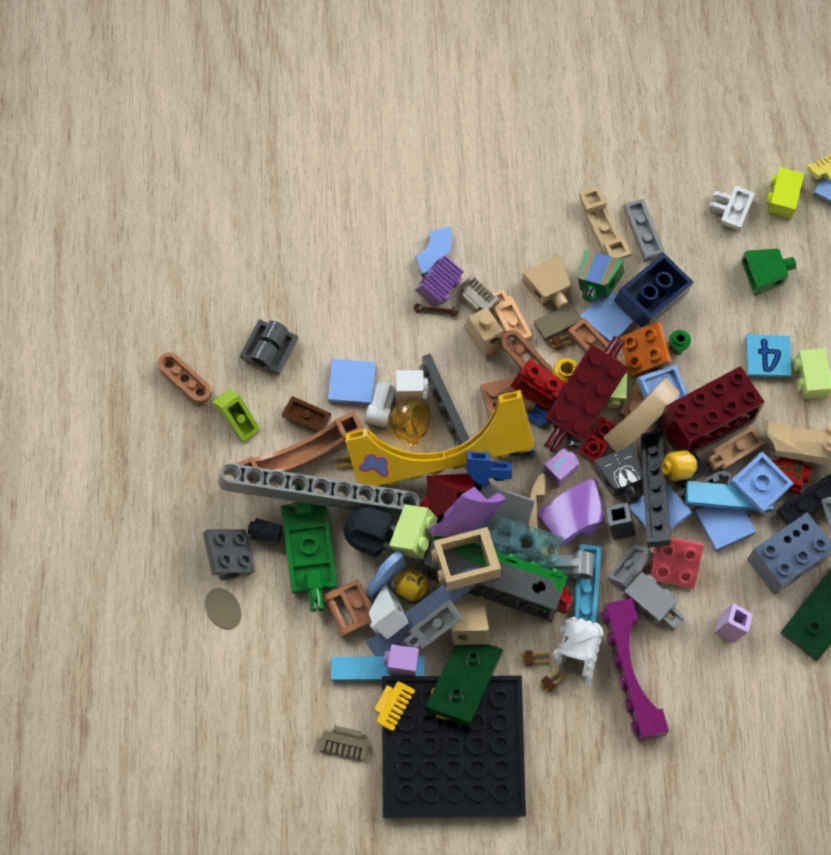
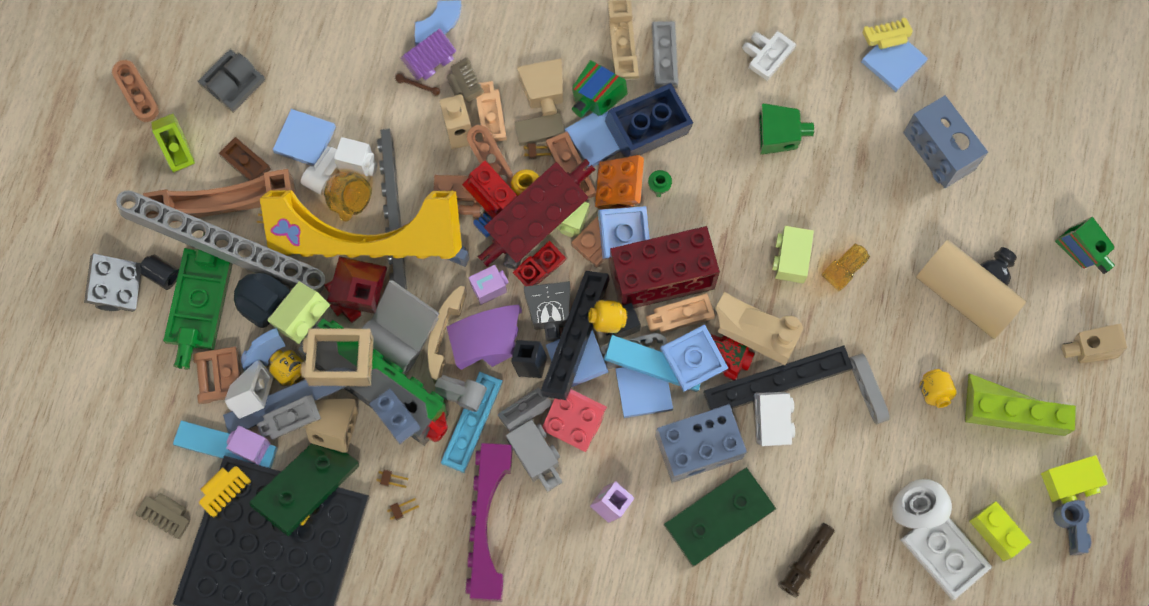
camera: 20 degrees right, 5 degrees up
(223, 608) = (93, 339): dark tan sticker -> none
(467, 514) = (358, 309): medium lavender slope -> none
(481, 468) = (392, 264): blue brick -> none
(533, 596) = (395, 416): none -> sand blue plate
(537, 537) = (409, 343): clear light blue brick -> none
(581, 644) = (438, 481): white helmet -> none
(642, 416) = (590, 252): tan slope -> none
(768, 356) = (752, 223): medium azure tile -> none
(785, 192) = (829, 52): neon yellow brick -> none

